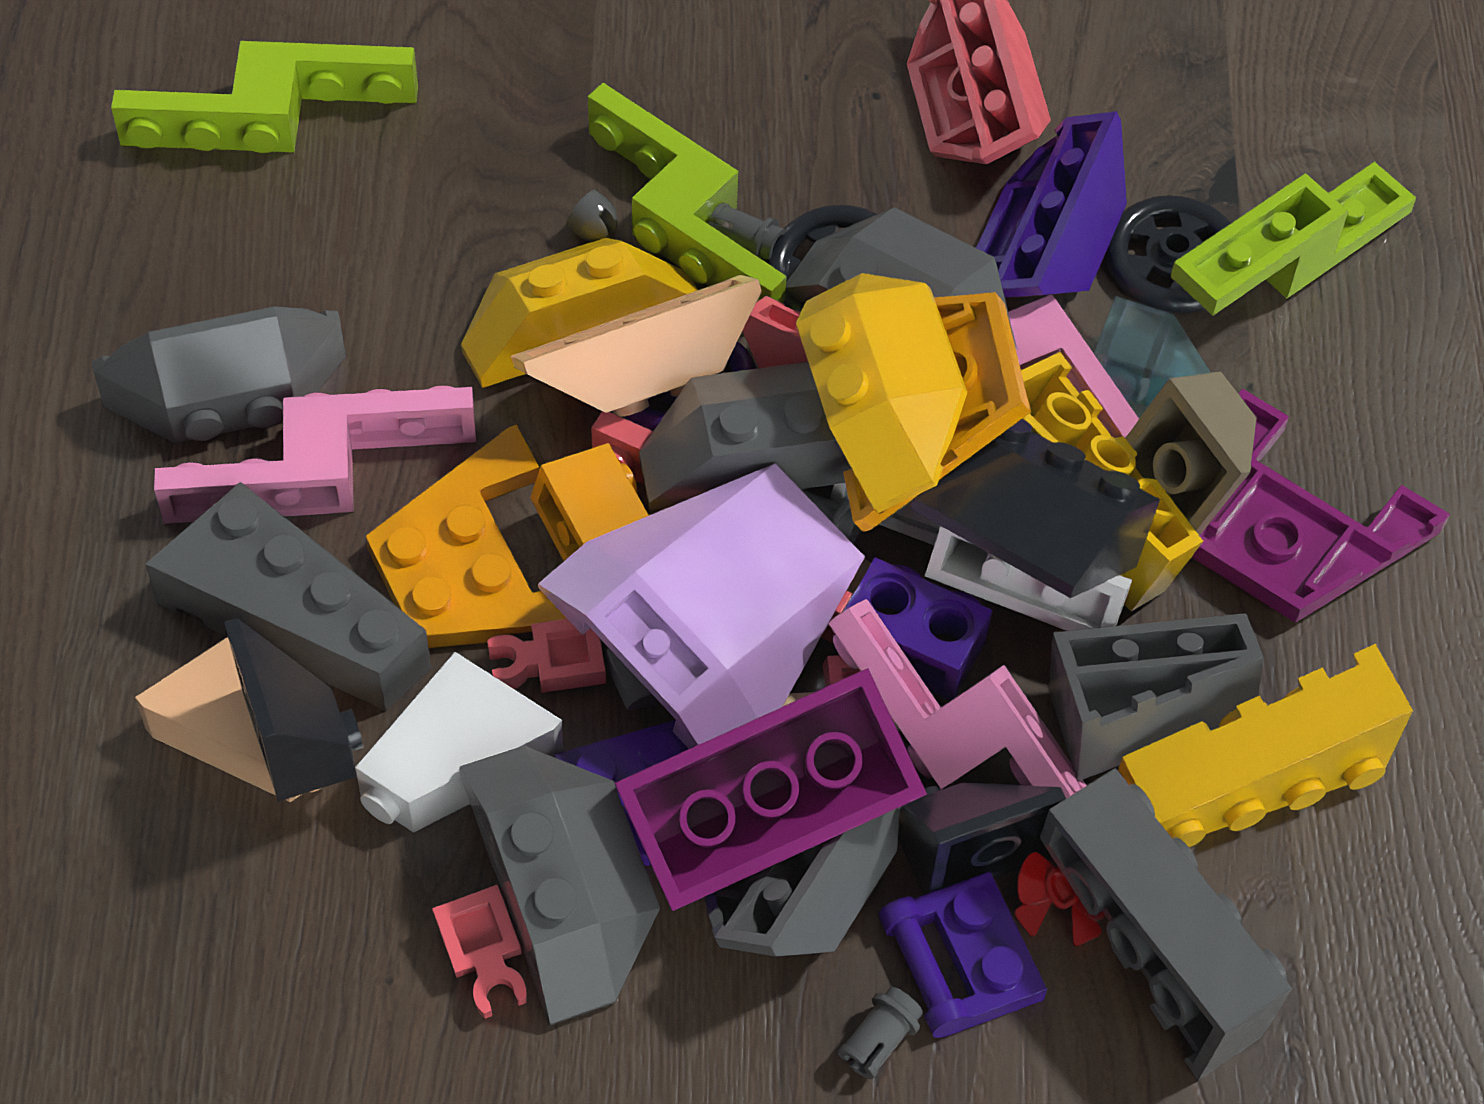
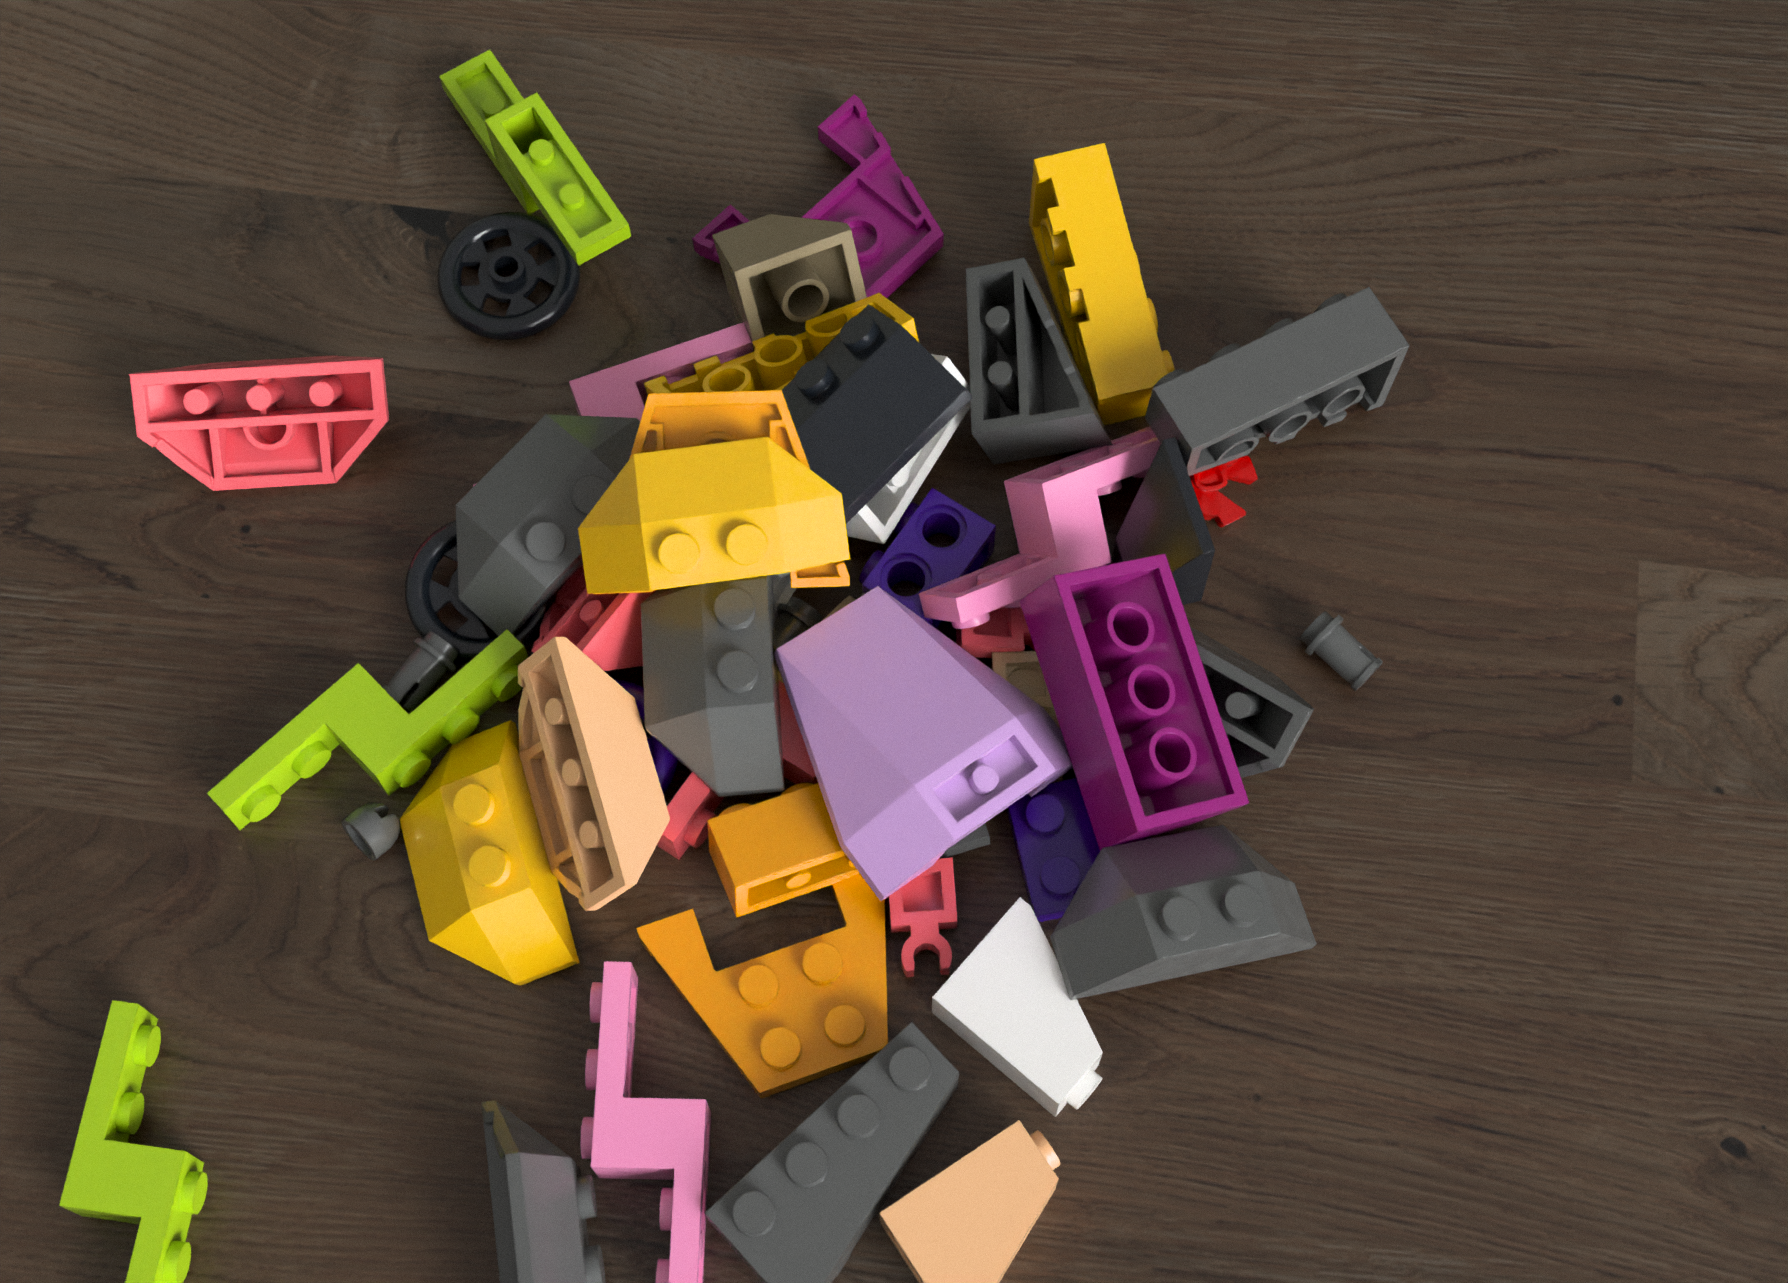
camera: 80 degrees left, 10 degrees up
(293, 716) = (1030, 1154): black slope -> none
(479, 940) = (1234, 1003): coral plate -> none
(981, 945) = (1262, 555): dark purple plate -> none
(1060, 209) = (459, 371): dark purple wedge -> none
(1144, 350) = (646, 309): clear light blue slope -> none

